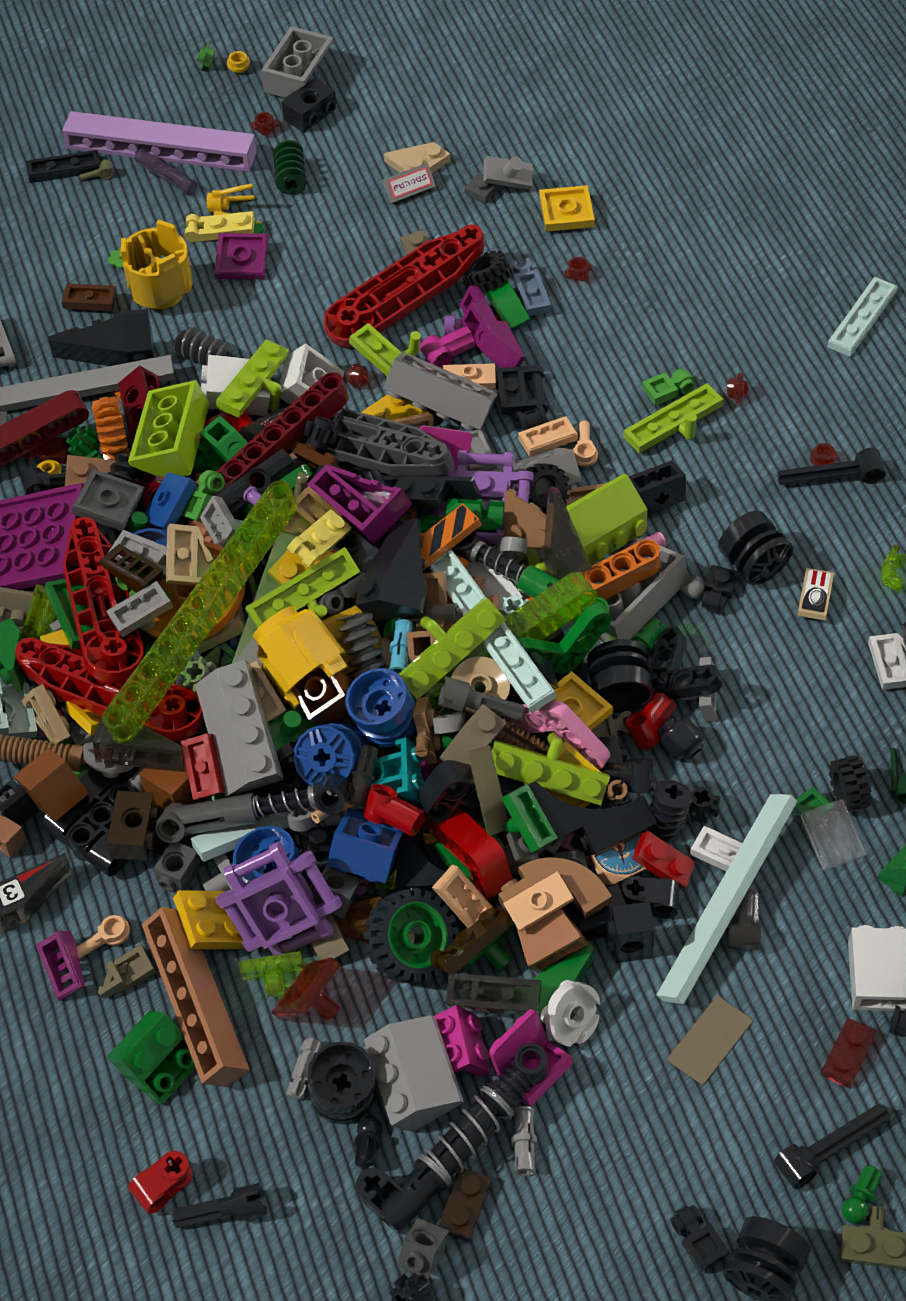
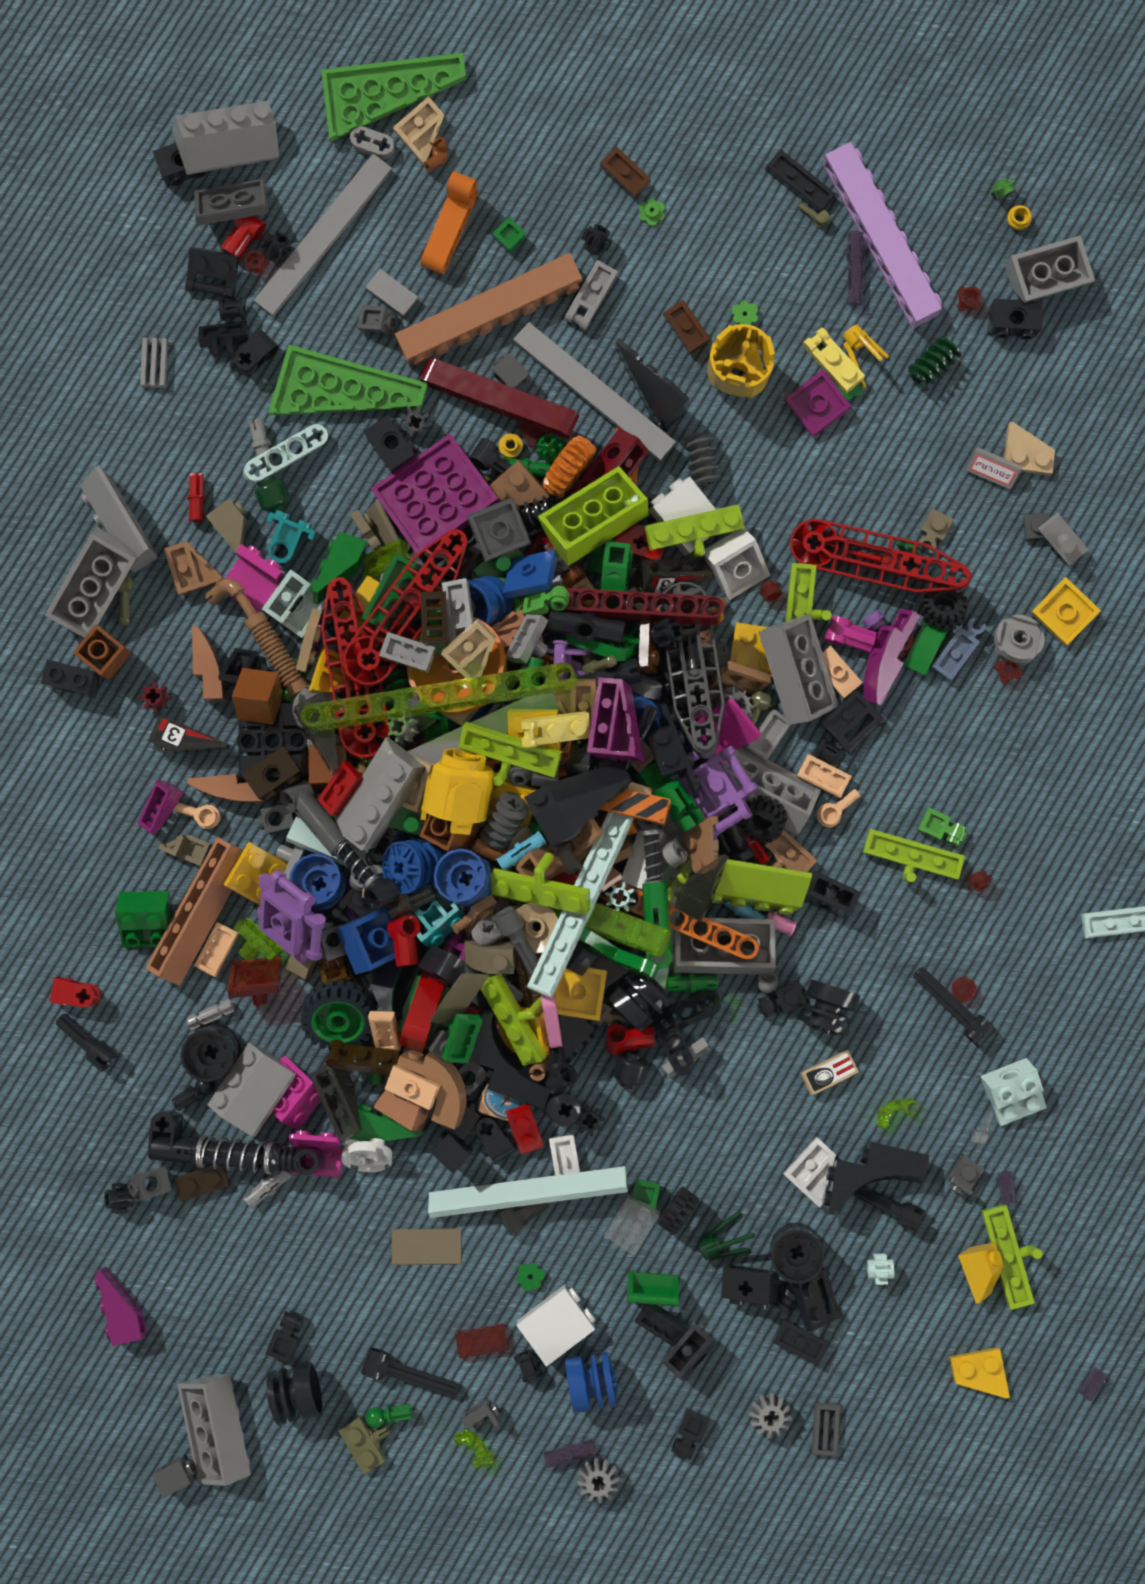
camera: 50 degrees right, 30 degrees up
(106, 891) = (226, 787): none -> nougat slope
(246, 1014) = (216, 949): none -> light nougat plate
(560, 246) = (1019, 652): none -> light grey plate
(817, 956) = (528, 1283): none -> green plant

